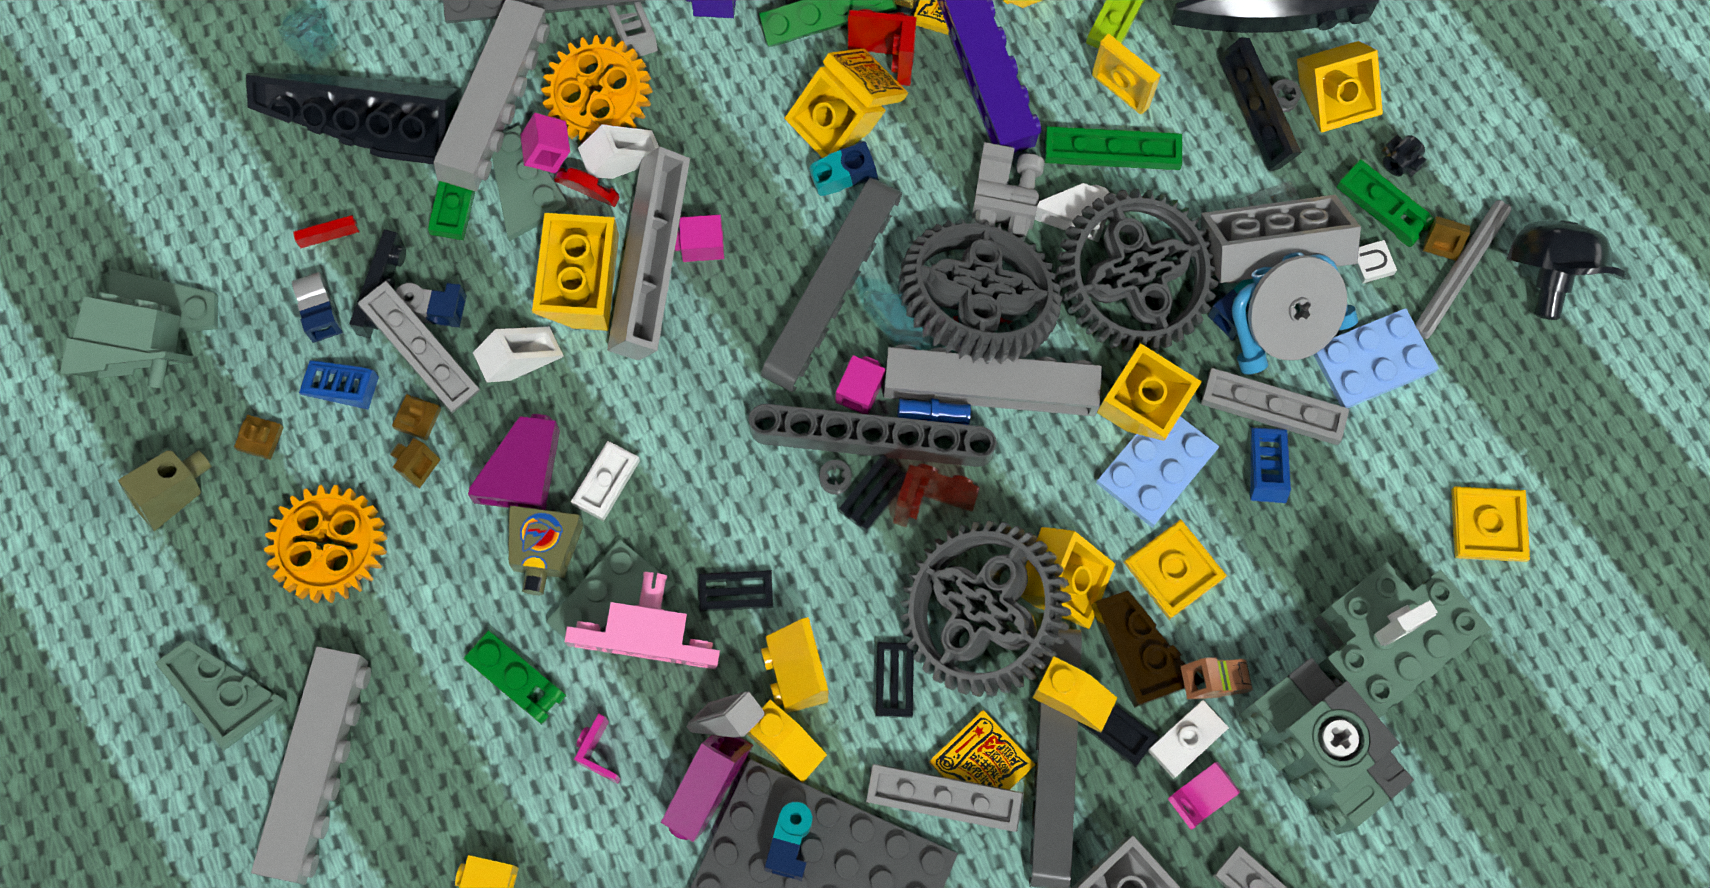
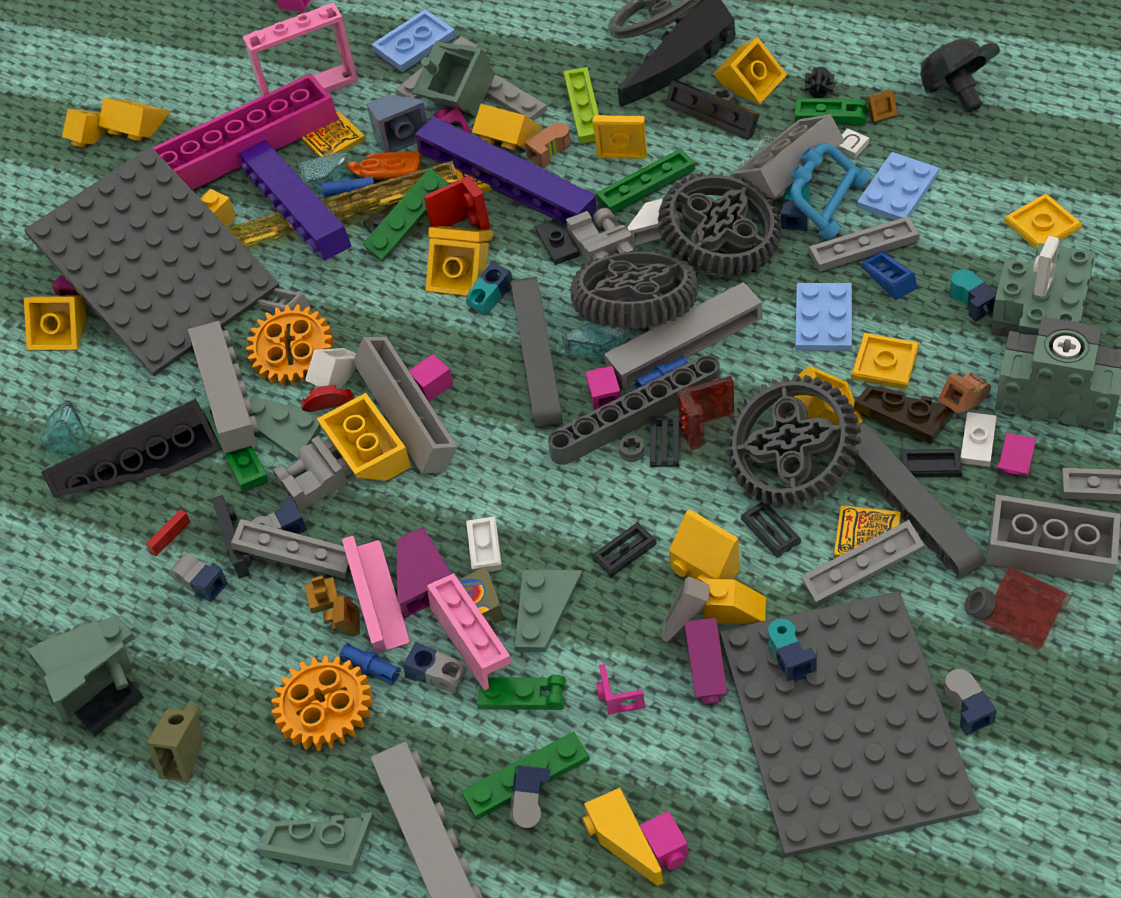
camera: 25 degrees left, 20 degrees down
(131, 392) = (107, 707): none -> black plate
(258, 437) = (219, 677): pearl gold tile -> none
(360, 399) = (262, 614): blue slope -> none
(400, 533) = (370, 663): none -> blue pin
(419, 808) = (525, 792): none -> leg
(451, 770) = (496, 789): none -> green plate
(452, 588) = (433, 668): none -> leg
(459, 459) = (376, 595): none -> bright pink panel
(506, 575) = (467, 628): none -> bright pink panel
(509, 281) = (321, 475): none -> light grey hips
(516, 352) = (360, 514): white slope -> none
(545, 143) = (281, 389): dark pink brick -> none
(644, 631) = (591, 597): bright pink brick -> none
(962, 156) = (556, 241): none -> black plate
(1050, 19) = (547, 143): none -> nougat leg
(1075, 694) = (888, 447): yellow slope -> none
(1149, 395) = (785, 279): yellow slope -> none
(1321, 301) = (833, 195): light grey piece -> none
(1336, 561) = (973, 292): none -> leg
(1462, 268) = (904, 115): light grey axle -> none

